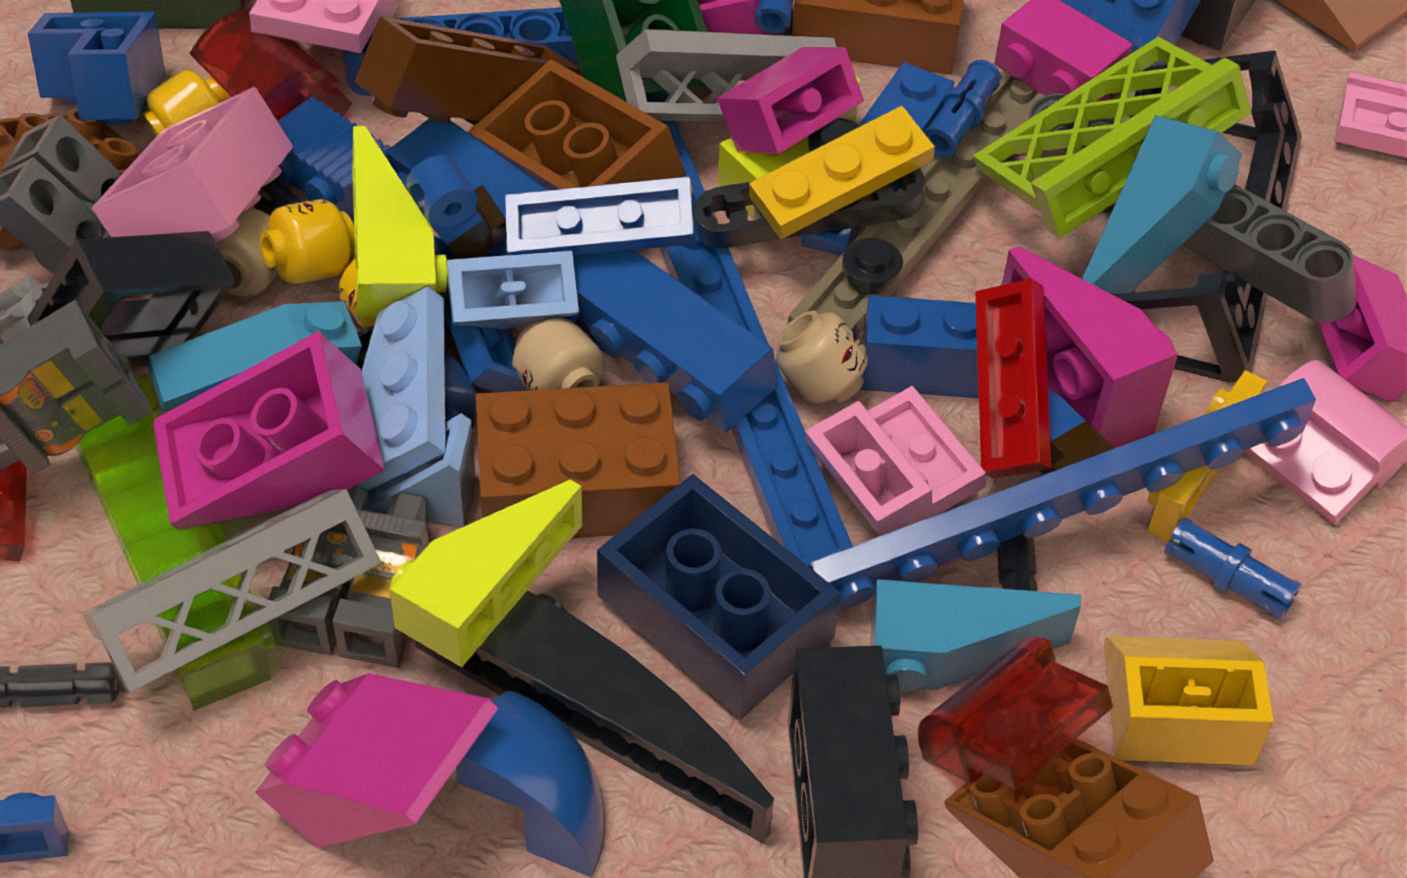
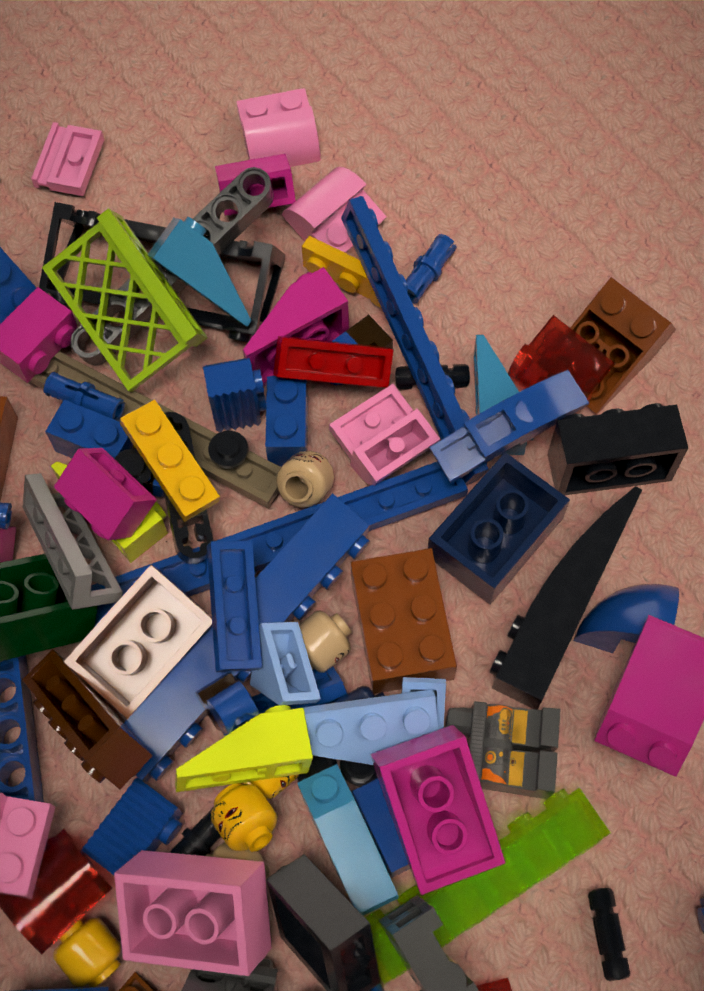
camera: 90 degrees left, 15 degrees up
(220, 564) = (546, 812): light grey fence -> none
(479, 572) = (529, 655): neon yellow slope -> none
(889, 597) = (508, 424): none -> blue slope
(963, 251) = (235, 394): none -> blue brick
(1187, 700) = (520, 289): yellow slope -> none

